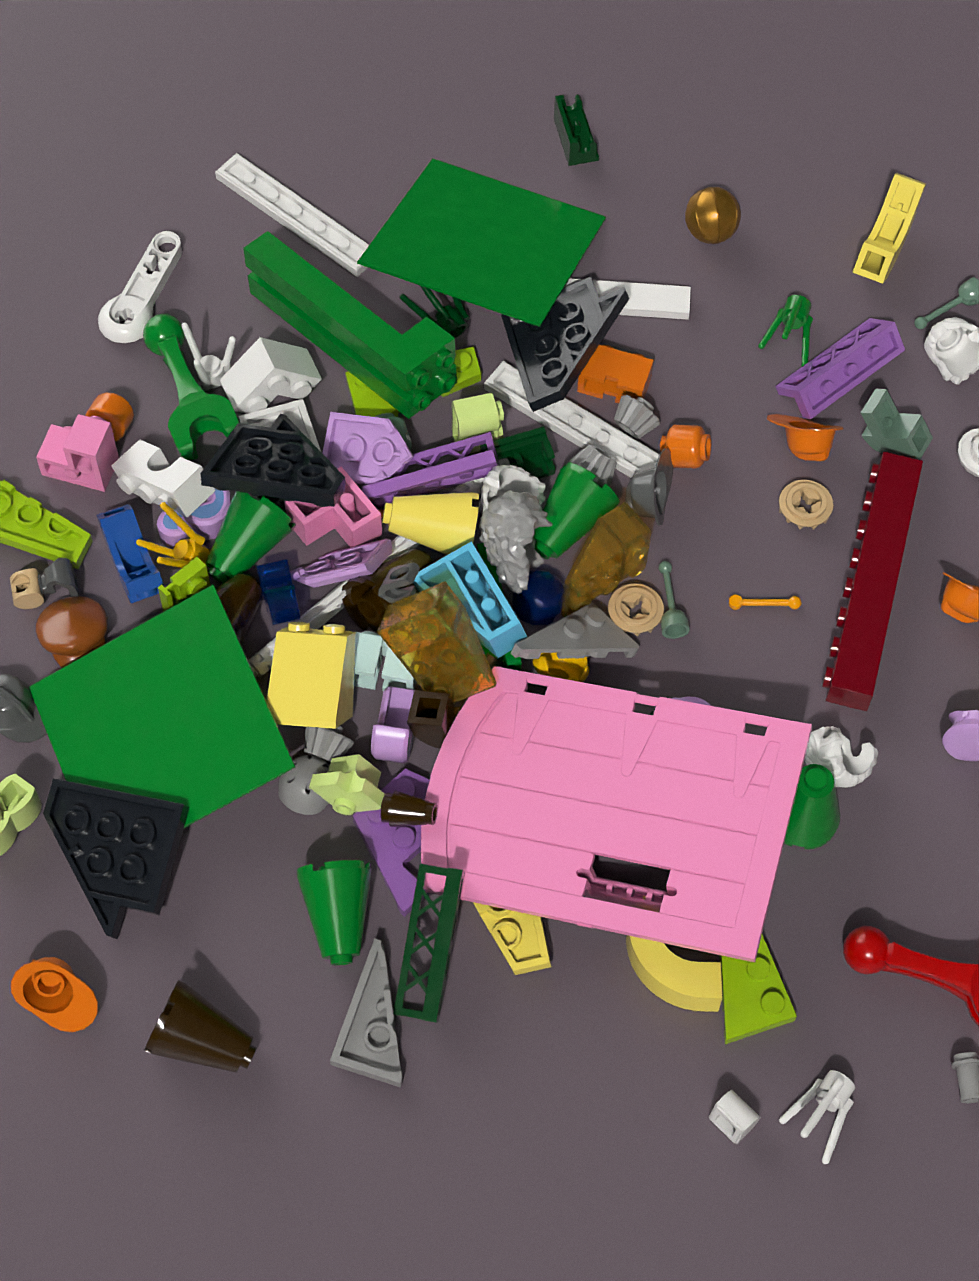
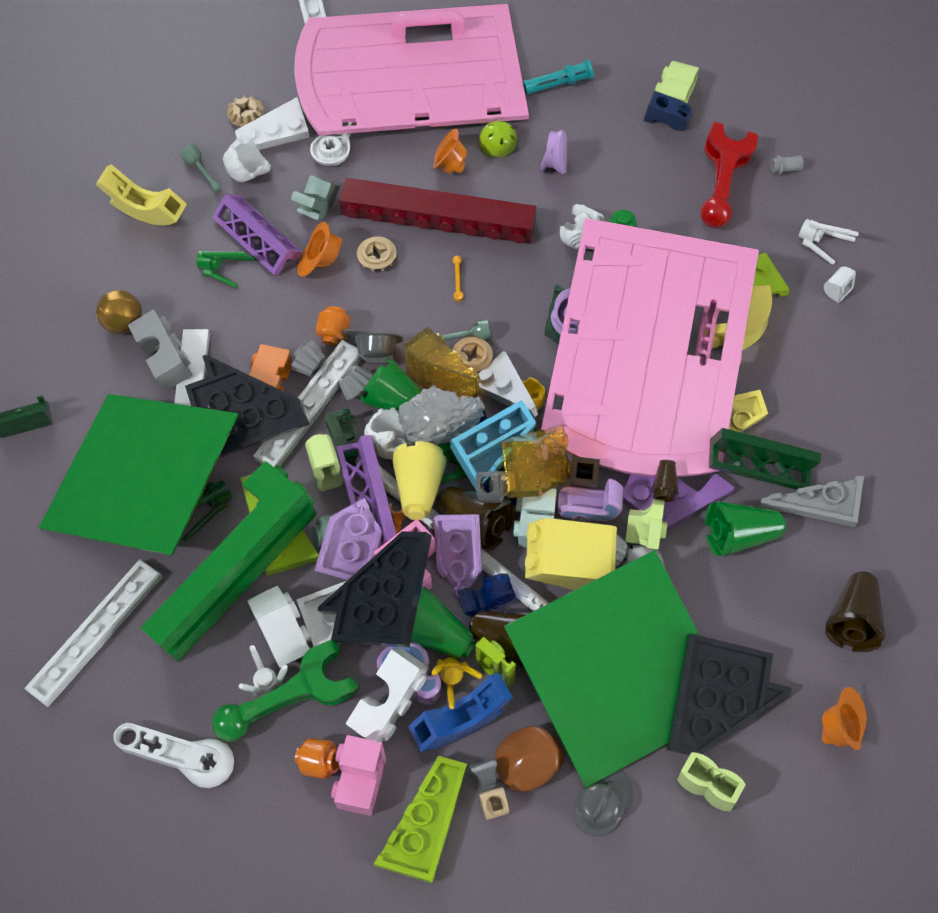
camera: 90 degrees left, 0 degrees up
(635, 268) = (168, 364): none -> light grey arch

